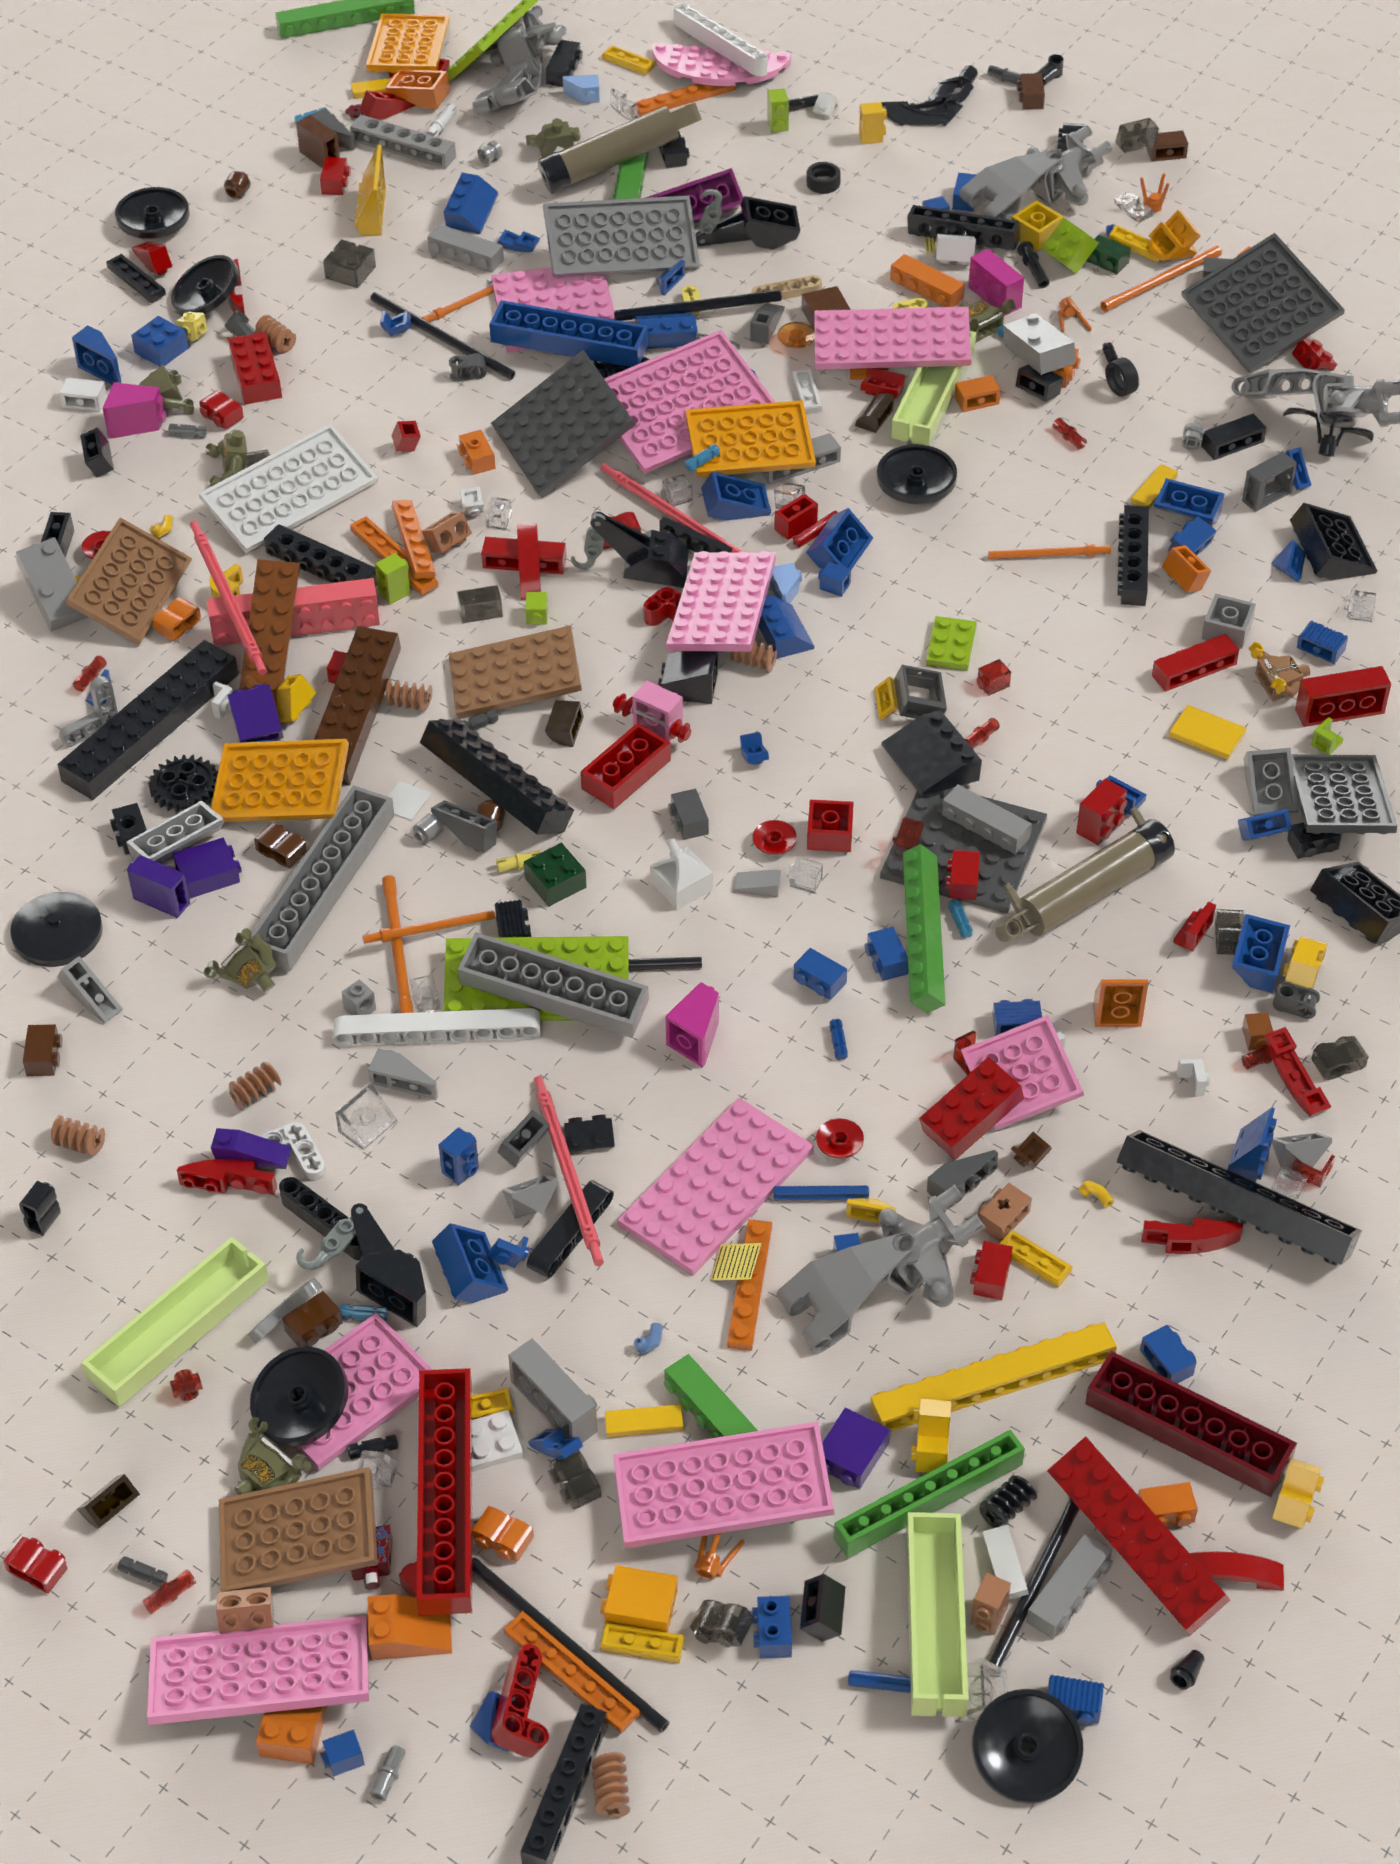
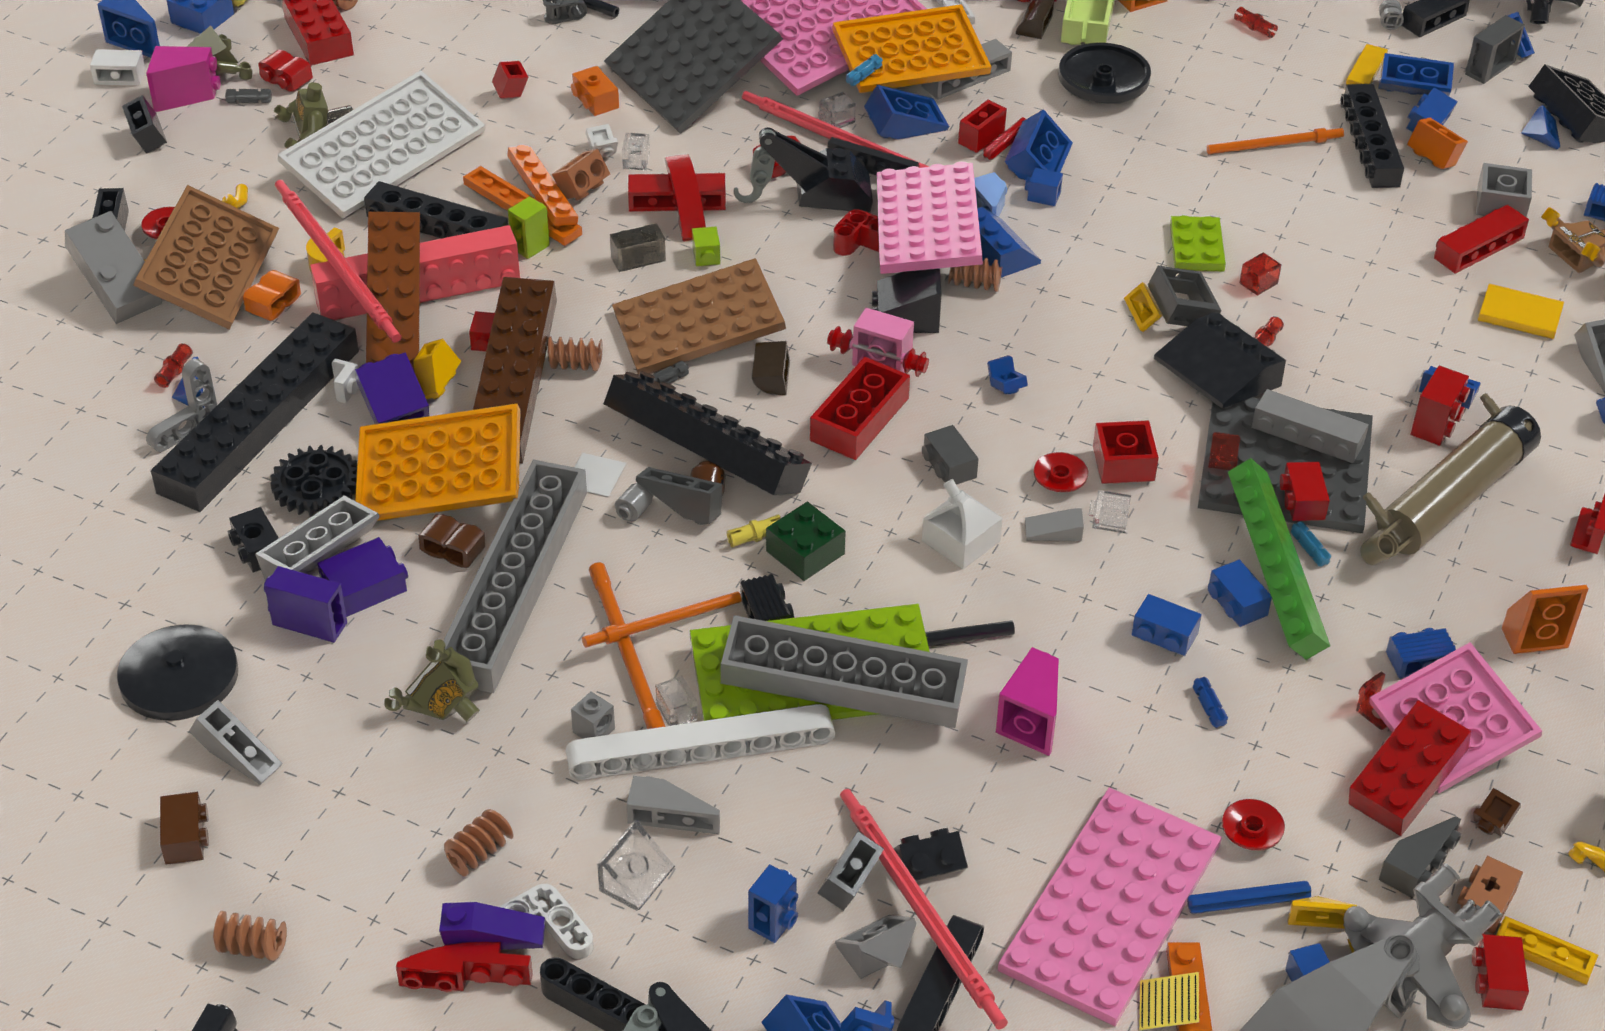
camera: 10 degrees left, 5 degrees down
(786, 493) = (965, 103): clear brick -> none

